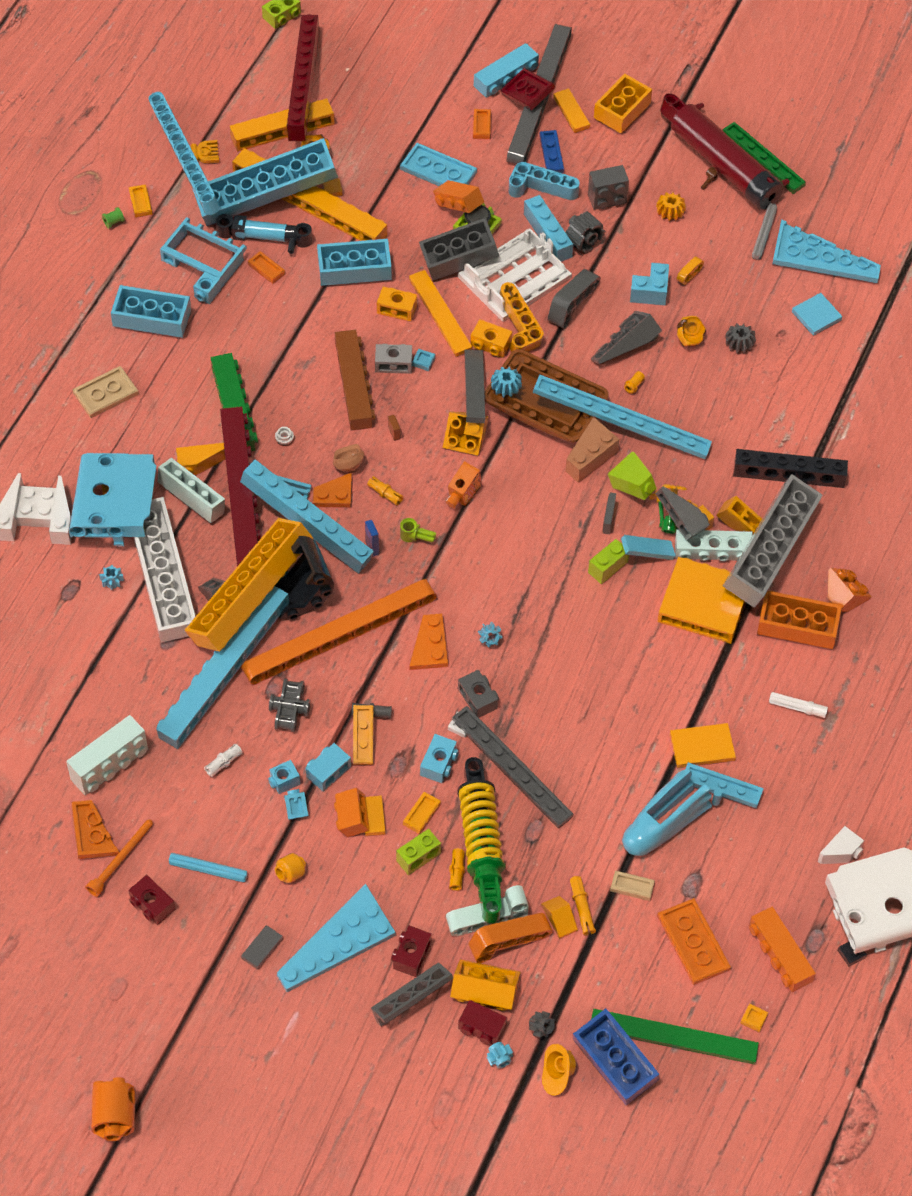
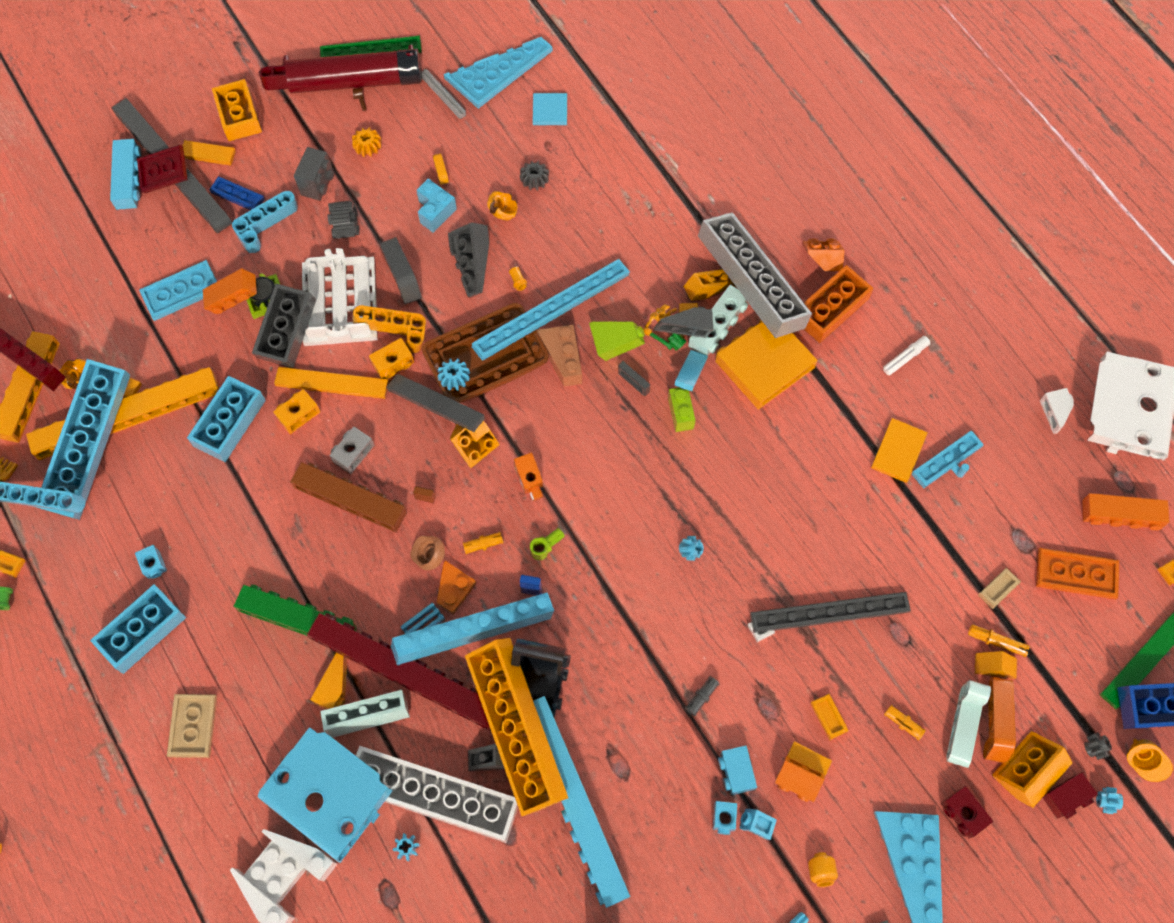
camera: 55 degrees left, 10 degrees up
(174, 257) = (93, 570): medium azure hinge -> none
(223, 760) = (671, 862): white pin -> none
(242, 228) = (110, 489): black piece -> none
(266, 267) = (167, 496): orange tile -> none
(284, 431) = (358, 589): white plate -> none
(289, 705) = (657, 771): dark grey axle -> none
(338, 631) = (603, 677): orange beam -> none
(362, 734) = (724, 719): light orange tile -> none
(411, 993) = (1006, 821): dark grey fence -> none
(418, 852) = (872, 745): lime brick -> none
(423, 359) = (369, 426): medium azure tile -> none
(430, 644) = (664, 602): orange wing -> none
(439, 748) = (789, 680): medium azure brick -> none
(474, 683) = (734, 601): dark grey brick -> none
(481, 123) = (162, 227): orange tile -> none
(482, 837) = (922, 695): piece -> none
(544, 221) = (312, 244): medium azure brick -> none
(647, 834) = (963, 547): medium azure piece -> none
(780, 466) = (684, 220): black brick -> none
(848, 955) = (1151, 464): black plate -> none

